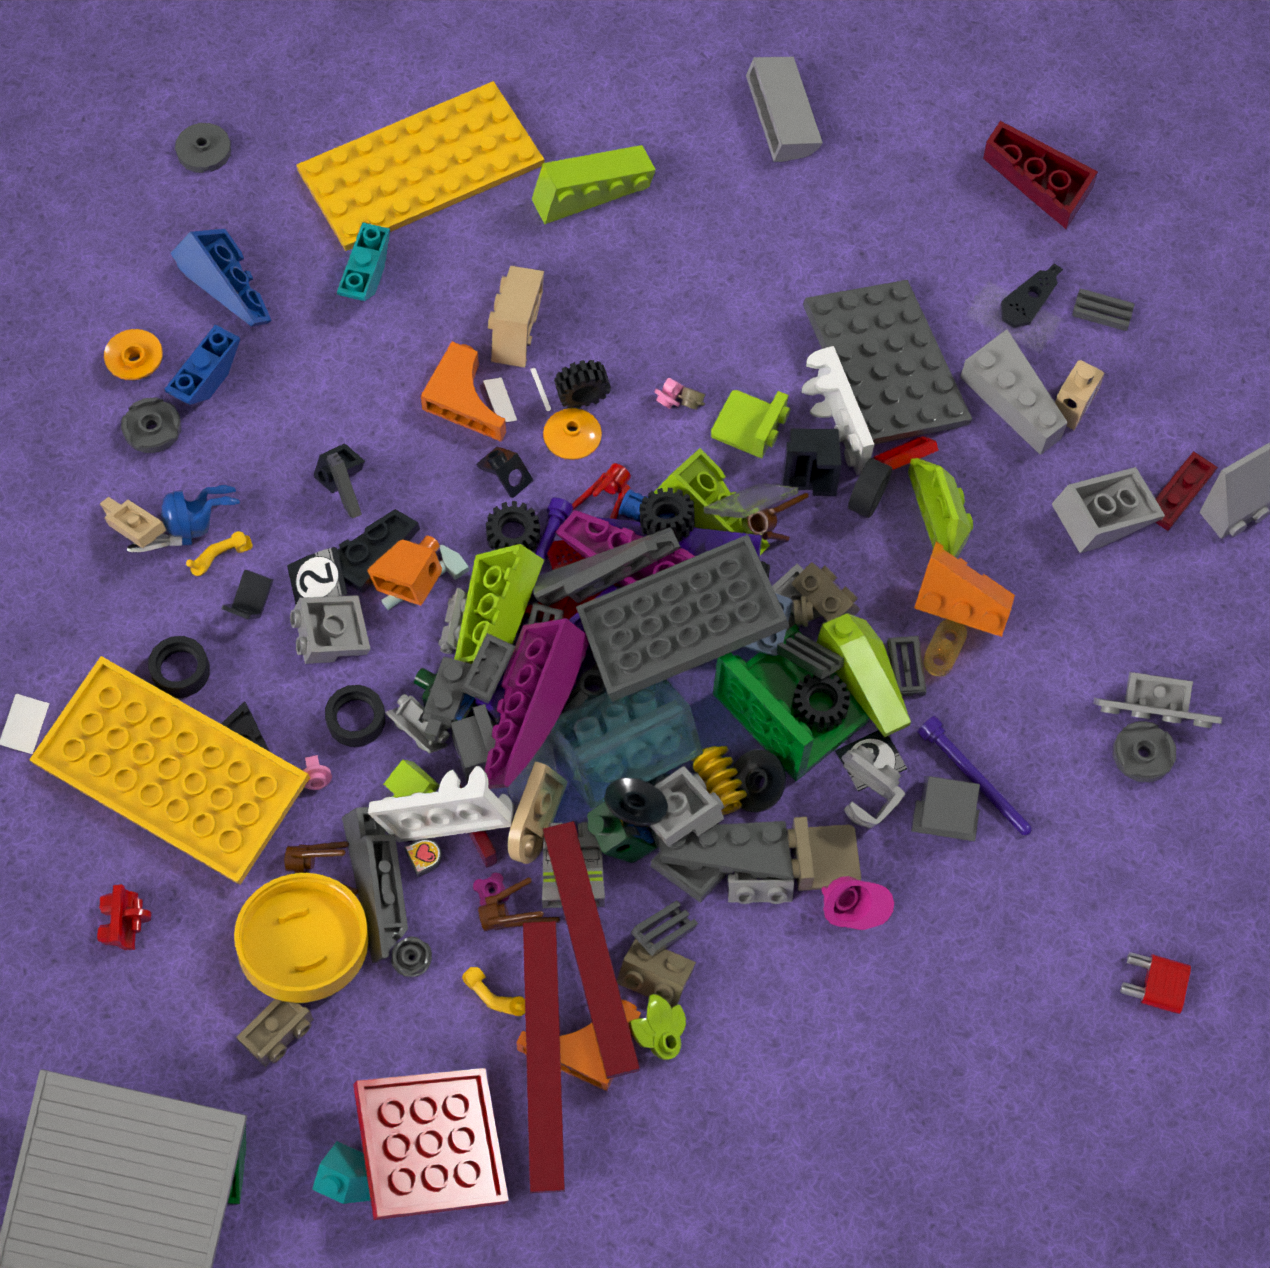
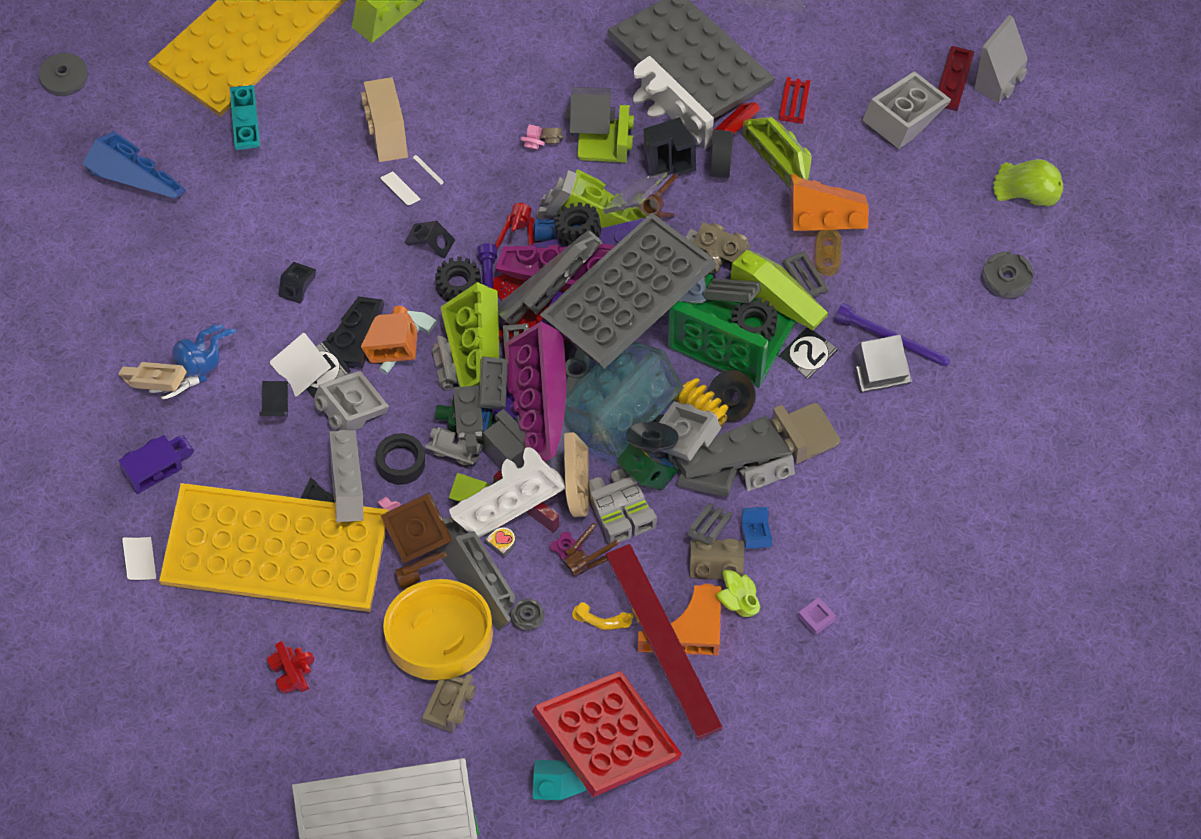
camera: 20 degrees left, 5 degrees down
(89, 619) = (154, 461): none -> dark purple brick
(133, 344) = (86, 244): light orange dish -> none
(146, 413) = (129, 290): dark grey plate -> none
(170, 646) = (239, 454): black tyre -> none
(202, 563) = (222, 391): yellow piece -> none
(205, 367) = (154, 240): blue slope -> none
(278, 717) = (346, 475): none -> light grey brick
(298, 563) = (300, 364): none -> white sticker
(328, 807) = (416, 527): none -> reddish brown plate
(344, 485) = (312, 290): dark grey tile -> none
(453, 393) = (366, 197): orange arch -> none
(568, 443) = (472, 201): light orange dish -> none
(582, 384) = (463, 152): black tyre -> none
(590, 951) = (663, 555): dark red tile -> none
(659, 472) = (557, 196): none -> light grey hinge
(715, 954) = (756, 527): none -> blue bracket
(740, 1090) = (816, 616): none -> medium lavender plate
(744, 385) = (590, 110): none -> dark grey plate
(856, 903) = (845, 455): dark pink piece -> none
(883, 781) = (820, 361): light grey piece -> none
(995, 435) = (797, 84): none -> red tile
(1015, 392) = (799, 46): light grey wedge -> none
(1081, 387) = (849, 25): tan torso -> none
(1158, 696) = (1000, 231): light grey bracket -> none
(1164, 982) = (1091, 431): red piece -> none
(1217, 647) = (1029, 180): none -> lime piece

